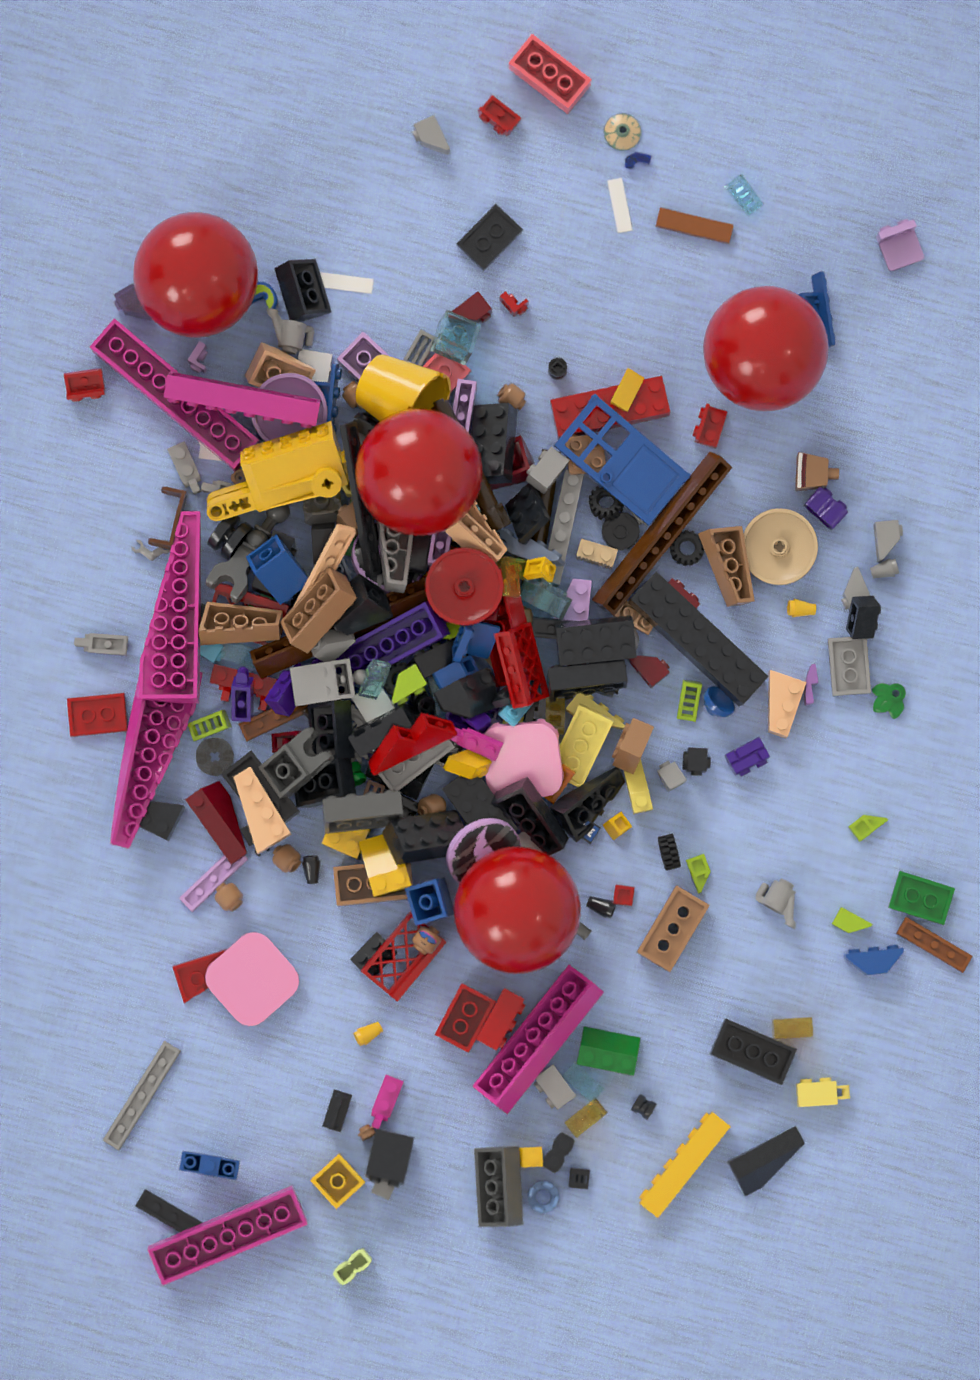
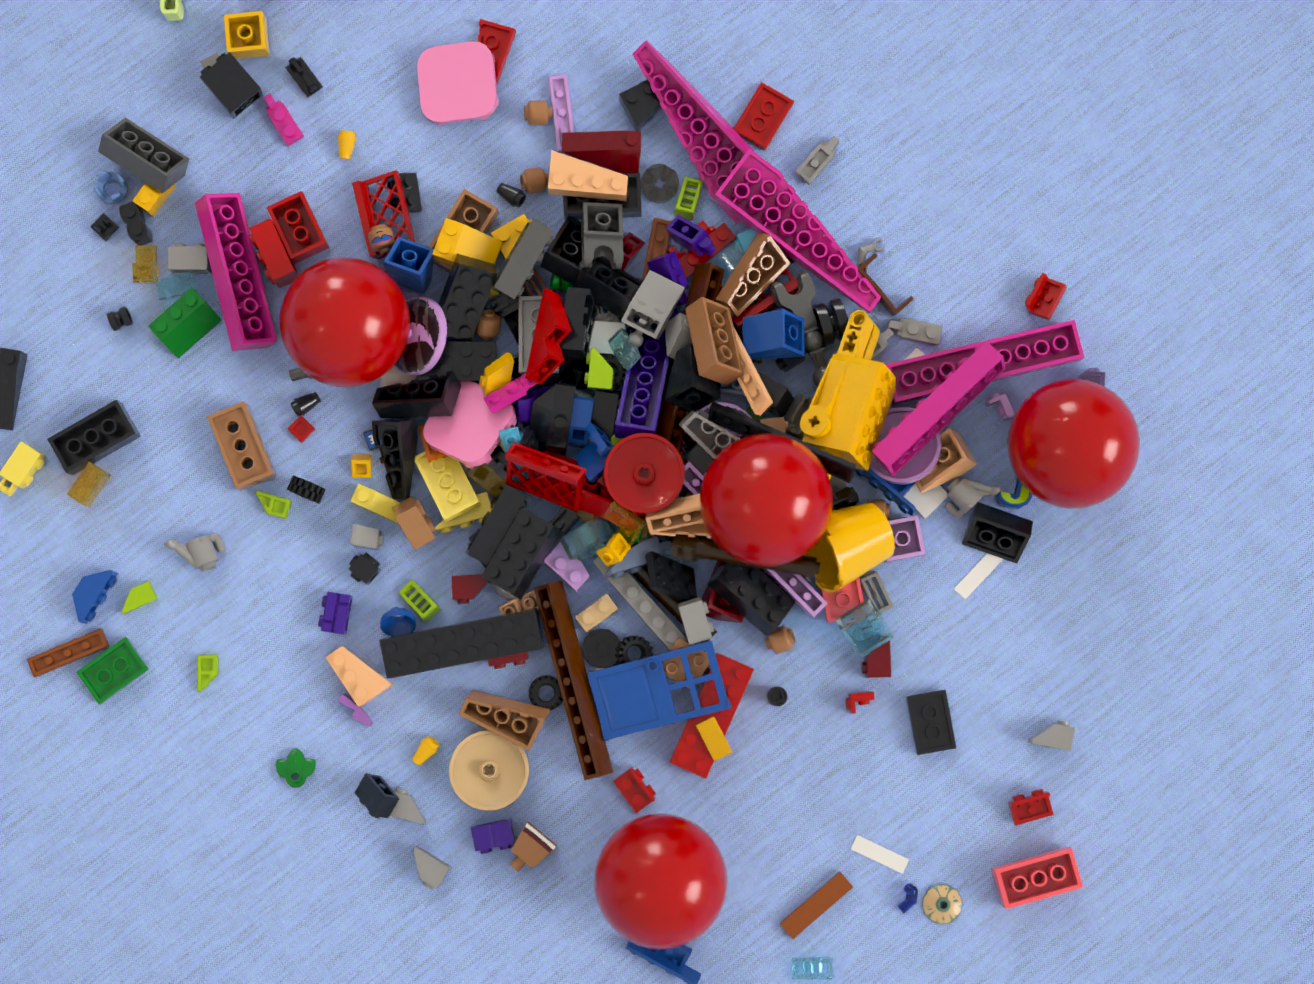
camera: 120 degrees right, 0 degrees up
(366, 1132) = (269, 86): medium nougat plate -> none
(684, 1165) = (49, 317): yellow brick -> none
(849, 666) = (347, 754): light grey plate -> none
(885, 569) = (405, 846): light grey cone -> none

